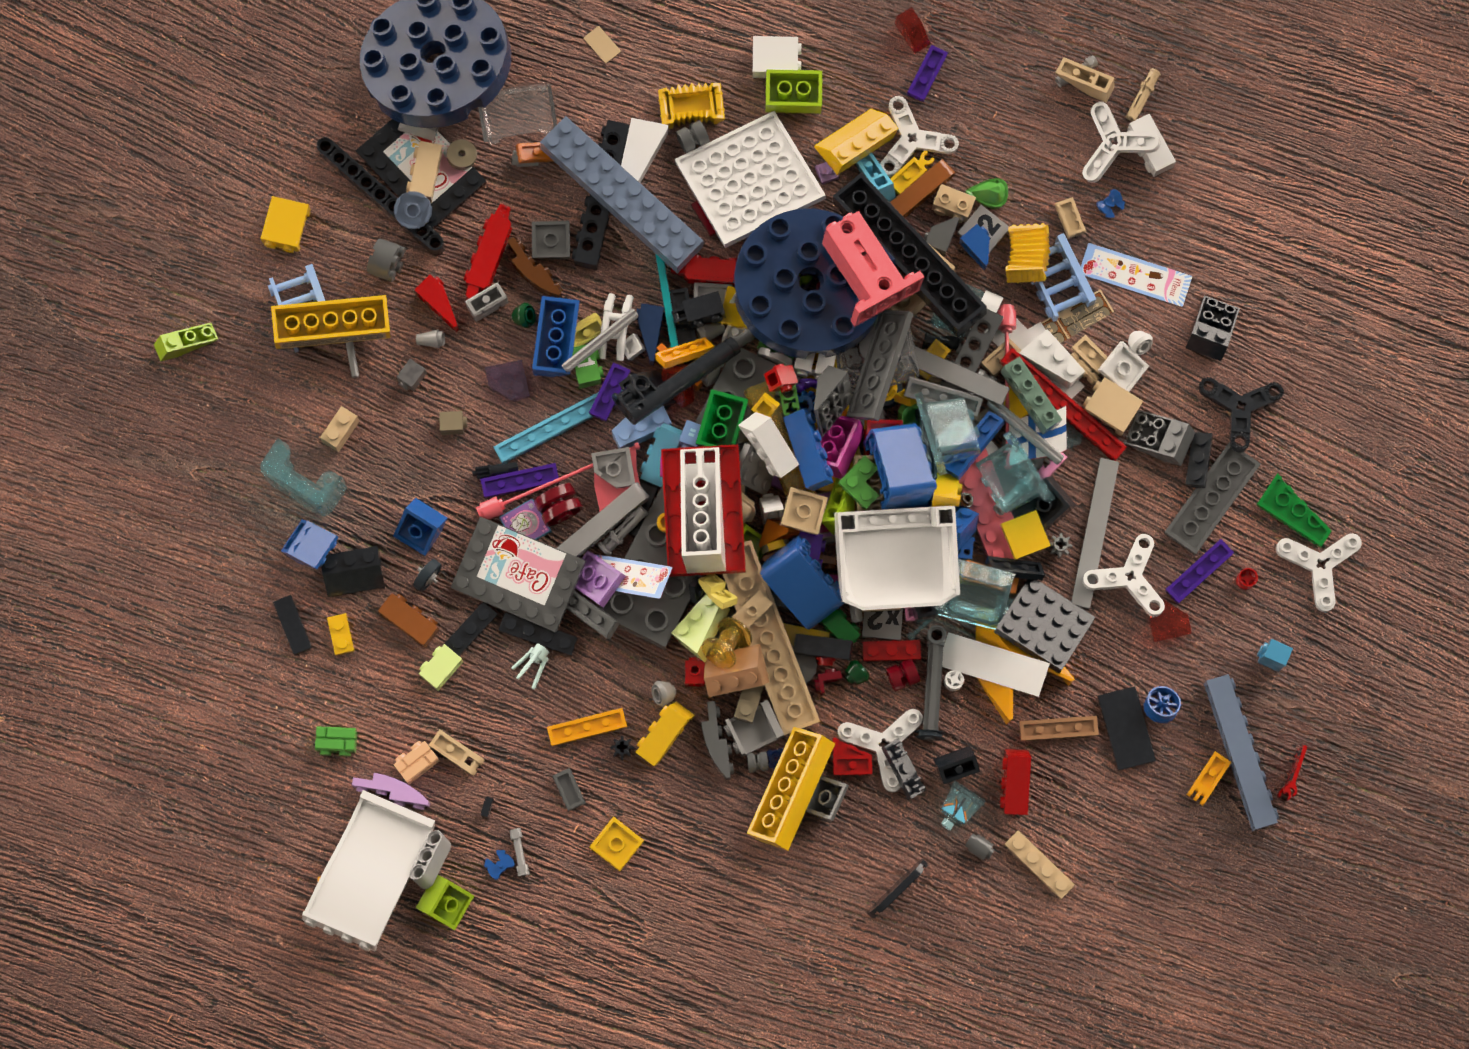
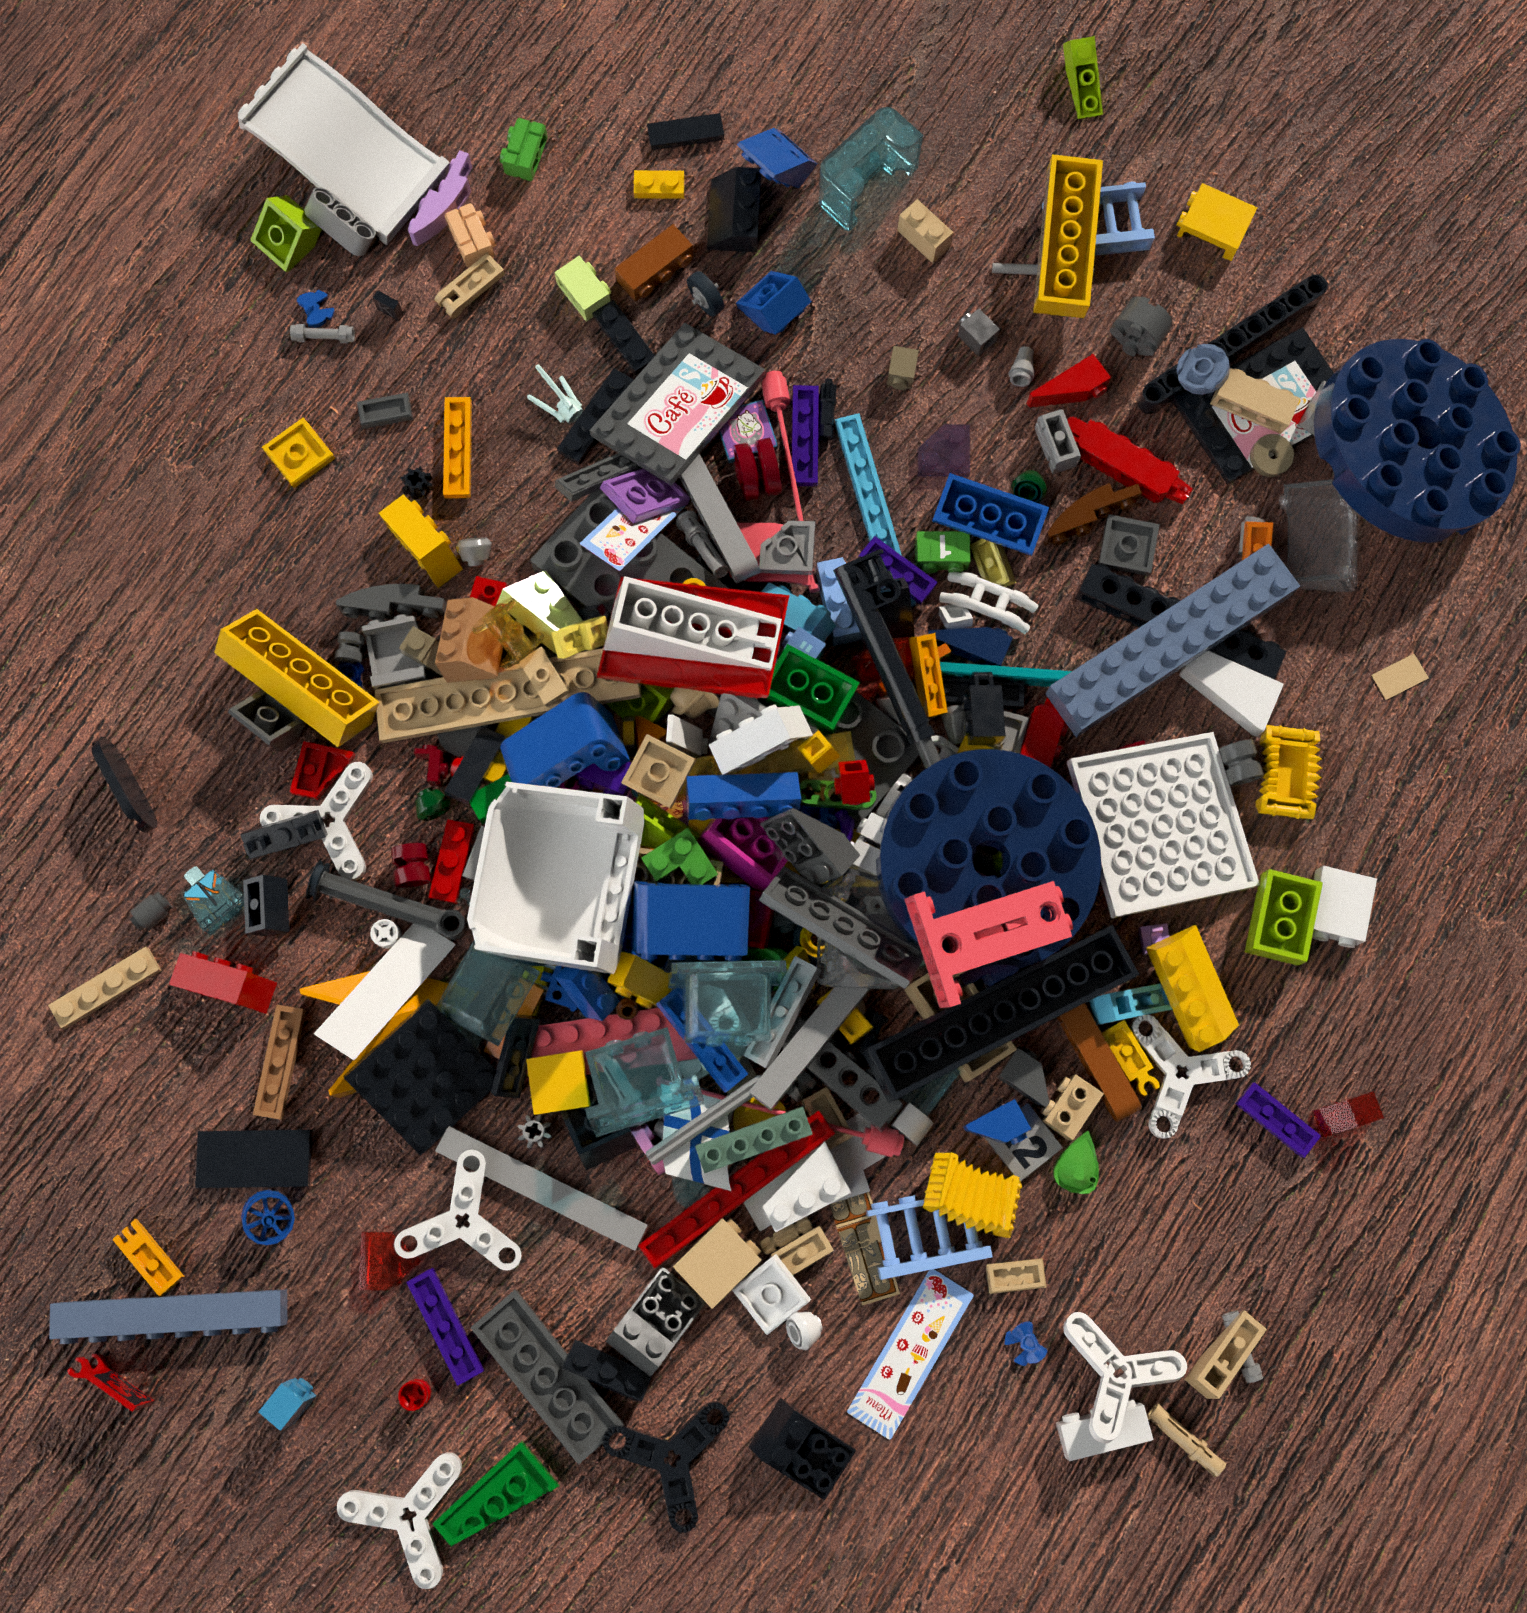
camera: 105 degrees right, 0 degrees up
(600, 340) = (970, 568): light grey axle -> none

